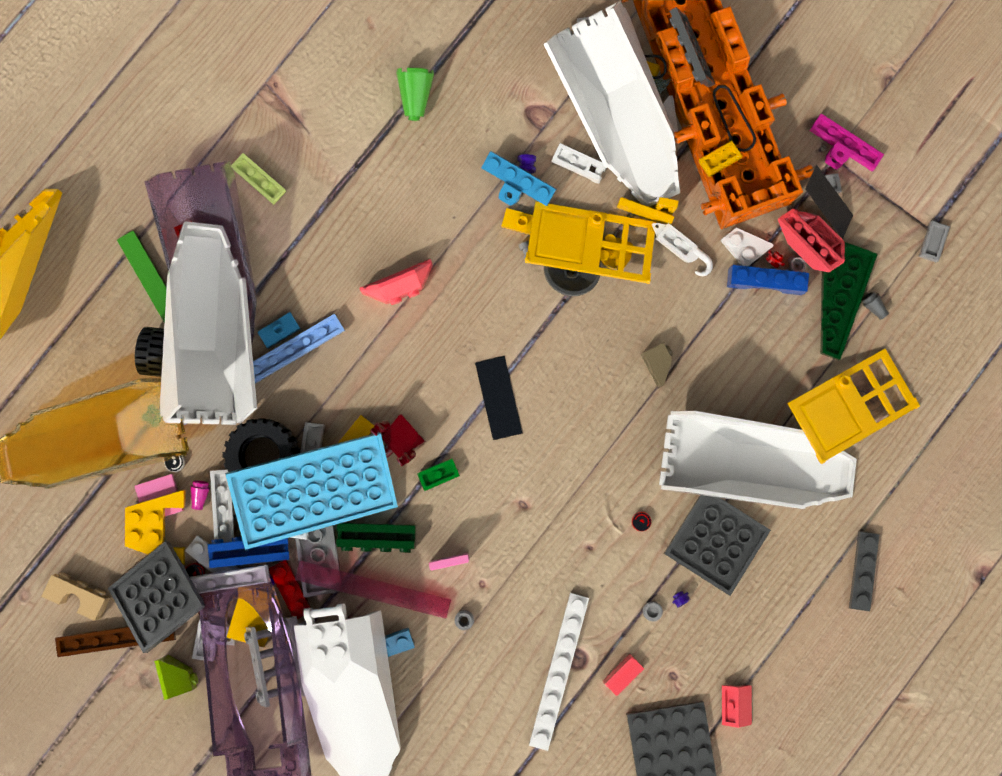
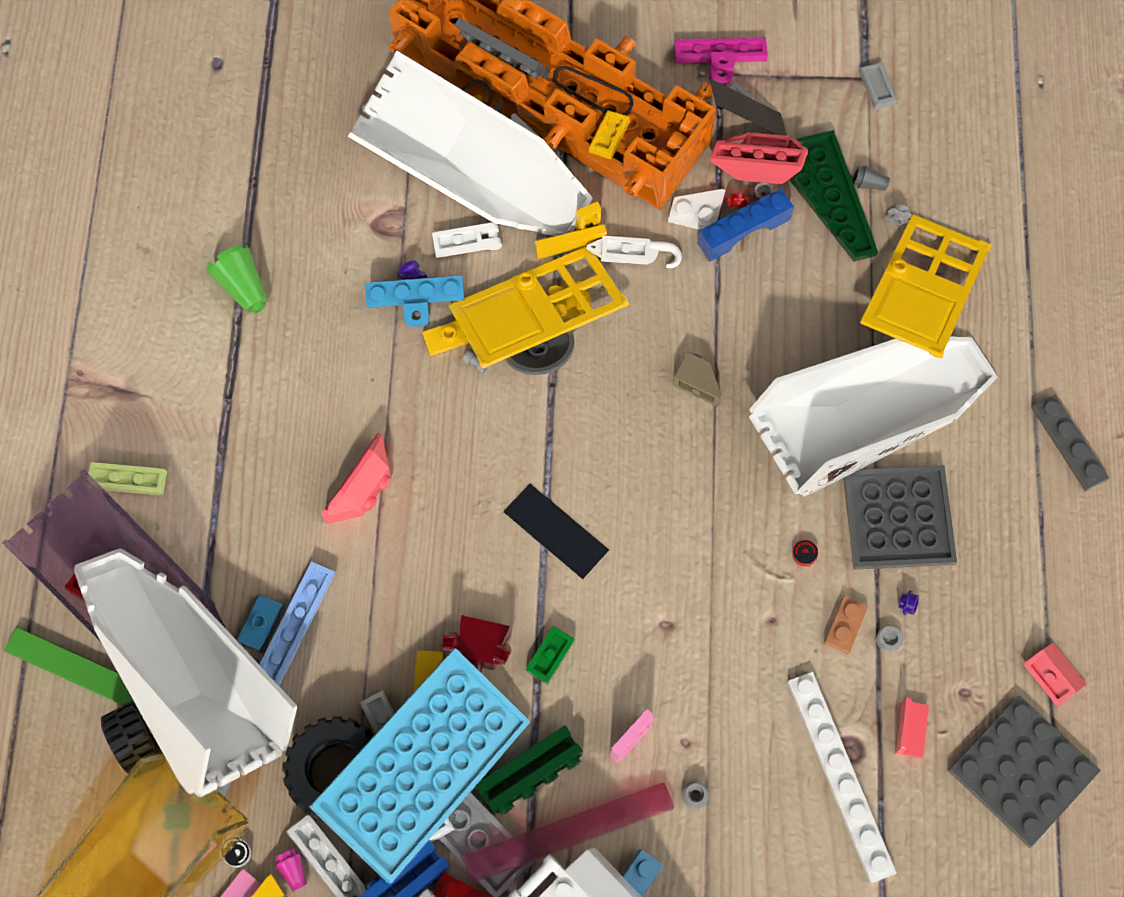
camera: 30 degrees left, 15 degrees down
(632, 584) = (846, 625): none -> nougat plate
(874, 343) = (898, 214): none -> light grey plate

